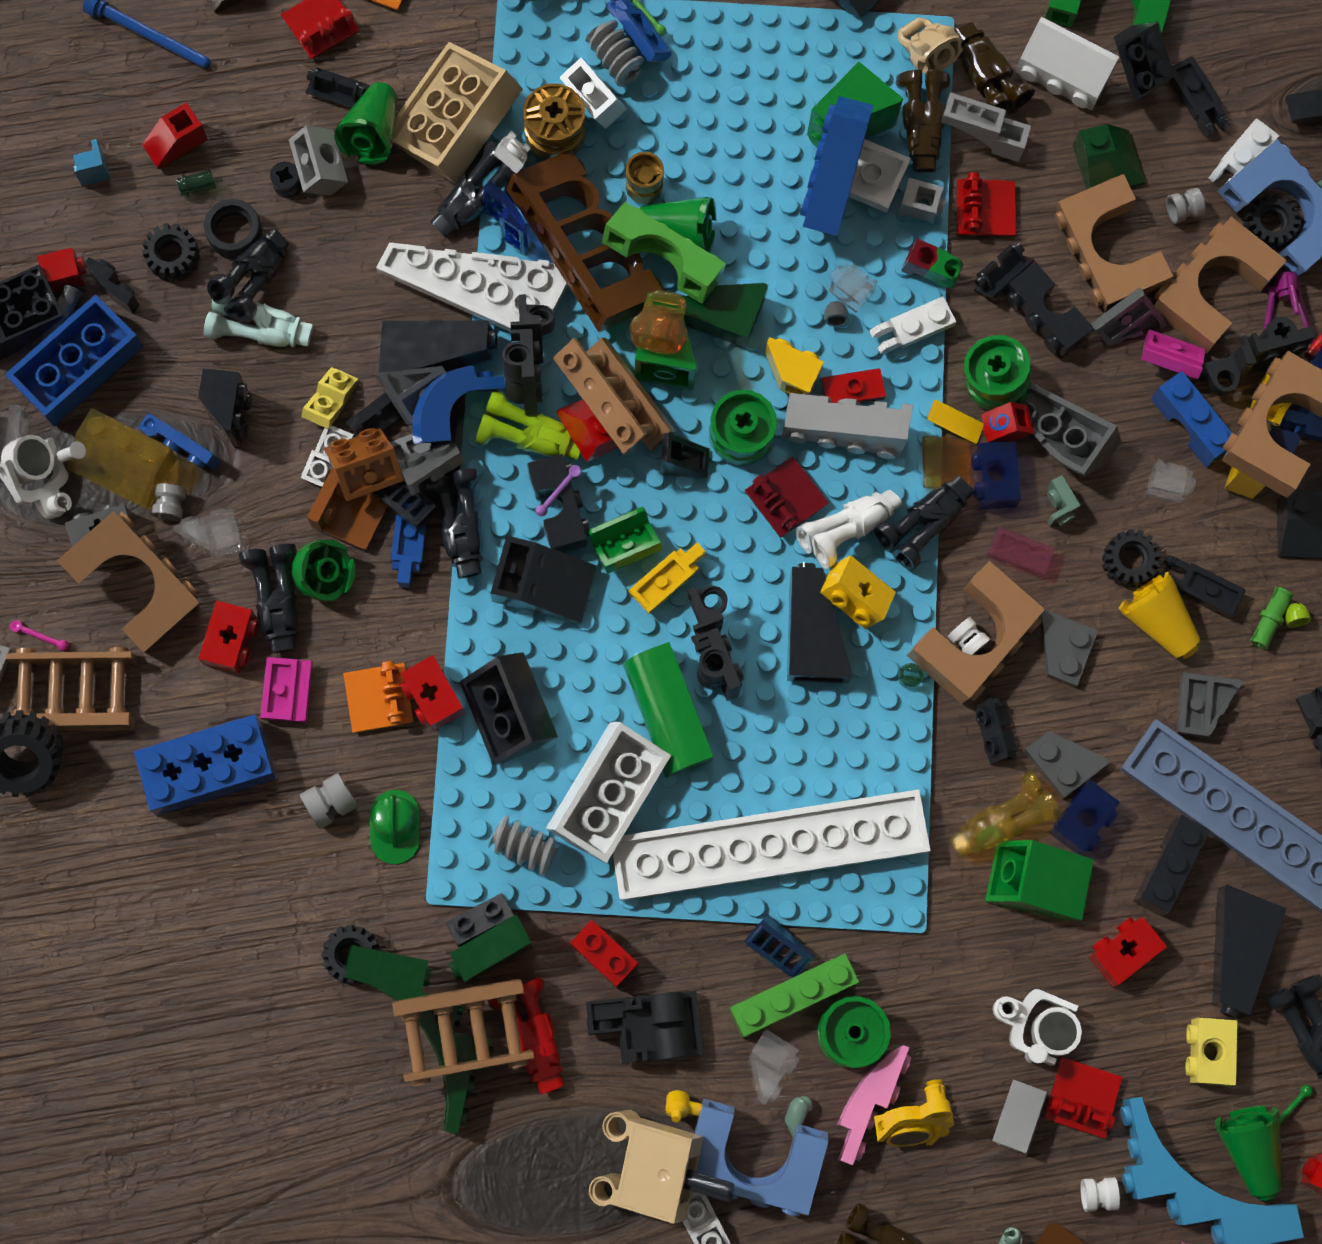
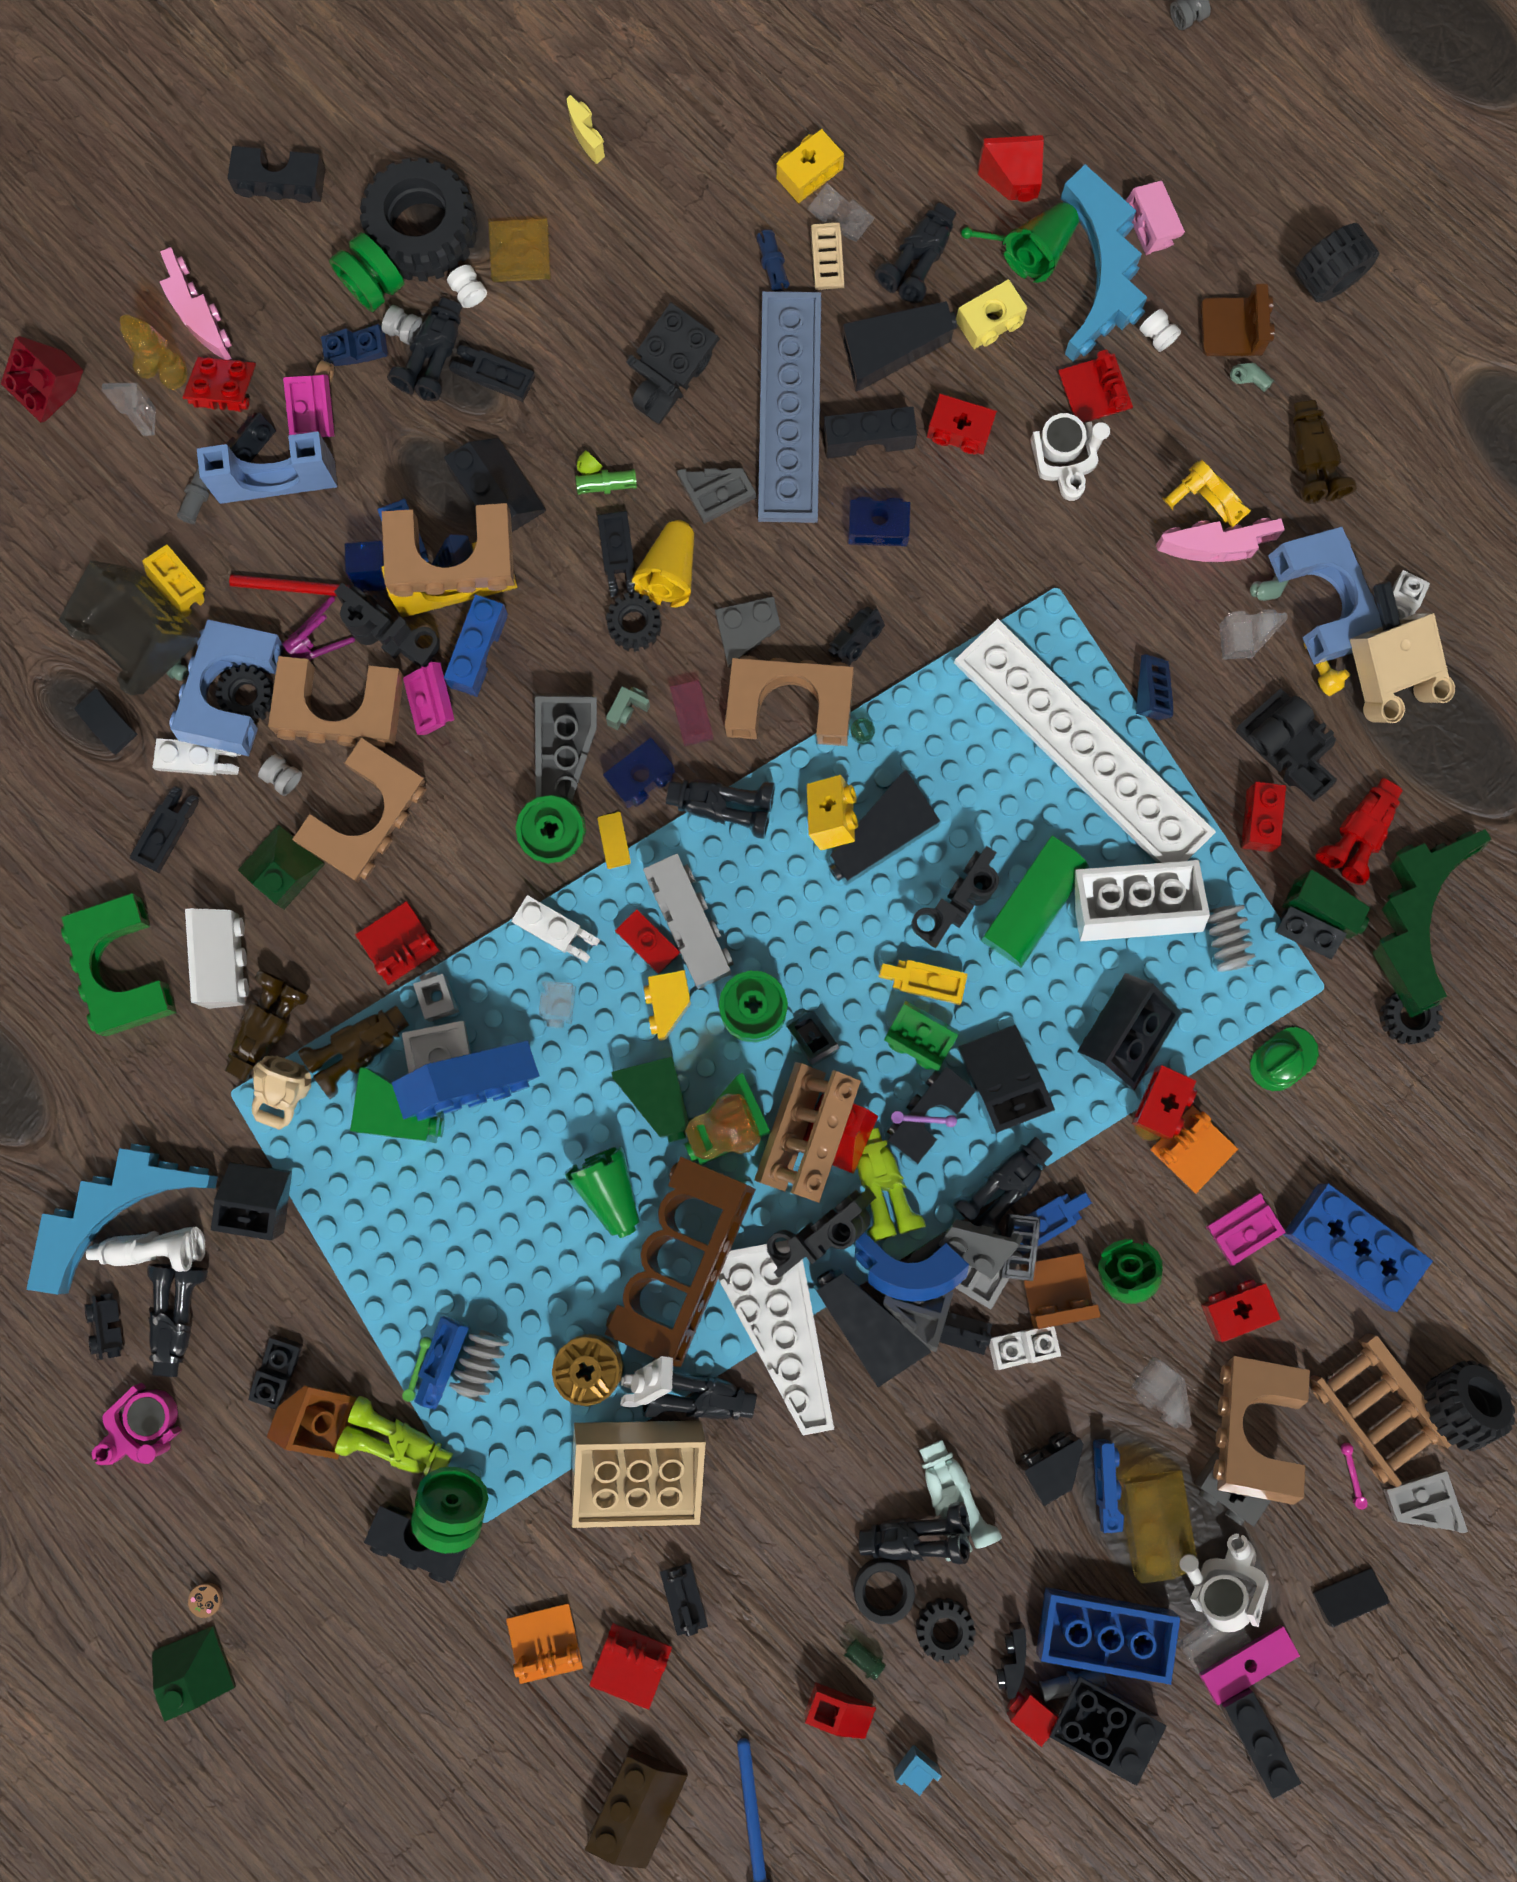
camera: 120 degrees left, 5 degrees up
(169, 502) = (1166, 1452): light grey wheel -> none
(277, 609) = (1188, 1286): black piece -> none
(288, 186) = (802, 1572): black wheel -> none
(318, 160) = (769, 1560): light grey brick -> none
(328, 801) = (1306, 1122): light grey wheel -> none
(330, 397) = (973, 1384): light yellow slope -> none
(364, 463) = (1017, 1306): dark orange bracket -> none
(369, 125) = (701, 1539): green cone -> none
(442, 1006) = (1409, 905): medium nougat fence -> none
(505, 212) = (712, 1337): clear blue slope -> none
(594, 93) = (535, 1355): white brick -> none
(635, 232) = (645, 1140): bright green arch -> none
(644, 177) = (583, 1252): pearl gold wheel -> none
(786, 496) = (784, 931): dark red hinge -> none
(793, 995) = (1211, 662): bright green arch -> none
(836, 314) = (590, 1001): dark grey hinge -> none
(853, 521) = (758, 855): white piece -> none
(868, 1020) = (1181, 584): green wheel -> none
(932, 264) = (488, 949): leg -> none
(944, 460) = (657, 824): clear orange piece -> none
(965, 632) = (796, 706): white wheel -> none
(988, 124) = (324, 988): light grey slope -> none
(994, 279) = (455, 886): black hinge -> none
(996, 824) = (939, 585): clear yellow piece -> none
(1007, 423) = (589, 793): red brick -> none
(1020, 1117) = (1147, 422): light grey hinge -> none
(1039, 879) = (956, 524): green slope -> none
(1060, 331) = (456, 852): black arch -> none
(1064, 762) = (842, 568): dark grey wing -> none
(1128, 319) = (423, 755): dark grey wing -> none
(1144, 58) = (167, 892): black slope -> none
(1170, 482) = (544, 631): clear window -> none

